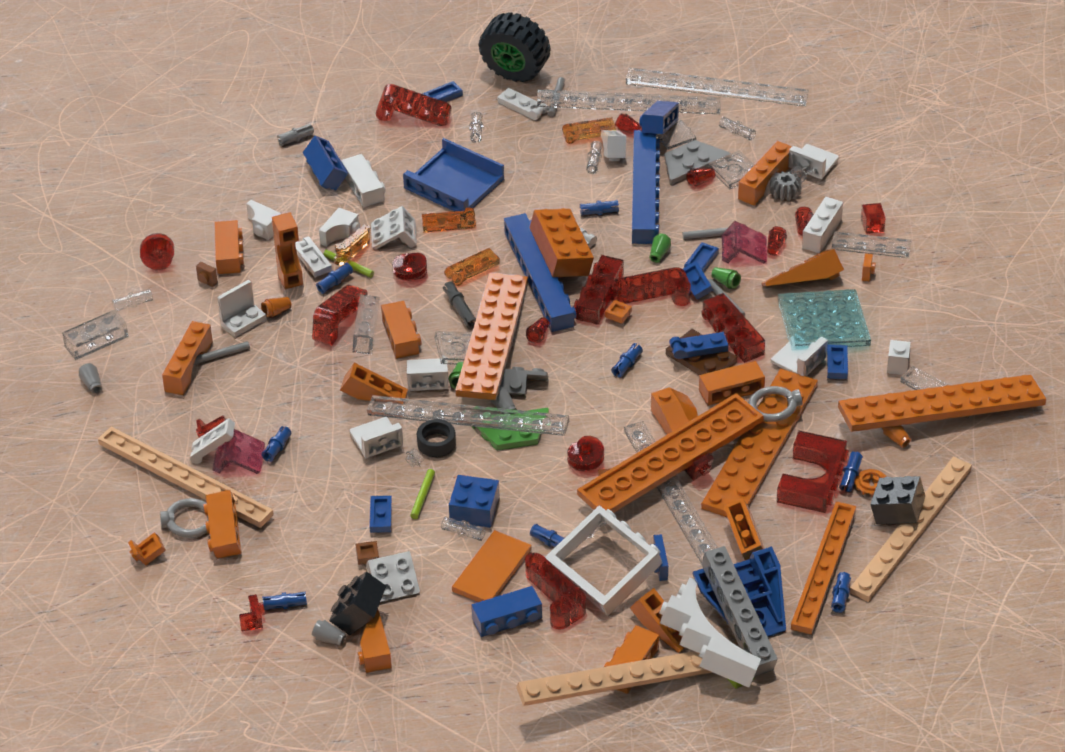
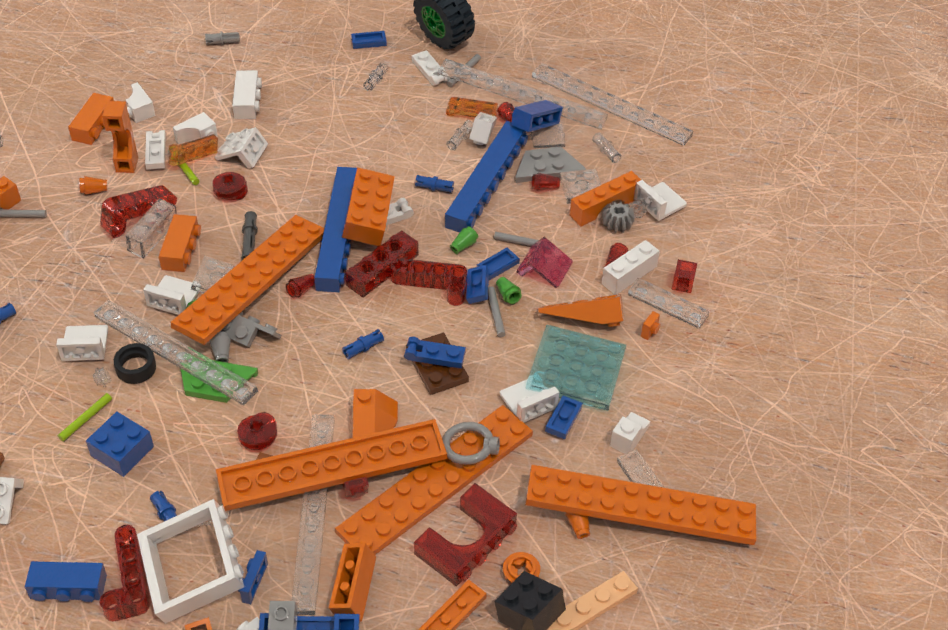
camera: 20 degrees right, 5 degrees up
(157, 251) = (29, 103): clear red piece -> none
(206, 274) = (56, 137): dark orange plate -> none
(238, 310) = (55, 178): white bracket -> none
(325, 163) = (223, 69): blue brick -> none
(334, 278) = (160, 175): blue pin -> none
(364, 383) = (111, 287): orange slope -> none
(380, 514) = (30, 425): blue plate -> none
(412, 104) = (332, 40): clear red beam -> none
(449, 220) = (295, 153): clear orange plate -> none
(455, 177) = (327, 117): blue panel -> none
(463, 528) = (92, 469): clear pin -> none
(471, 266) = (284, 203): clear orange plate -> none
(491, 567) = (89, 523): orange tile -> none
(618, 311) = (385, 291): orange plate -> none
(724, 383) = (445, 404): orange brick -> none
(739, 332) = (483, 346): clear red brick -> none
(776, 239) = (578, 267): clear red cone -> none
(851, 471) = (505, 548): blue axle -> none

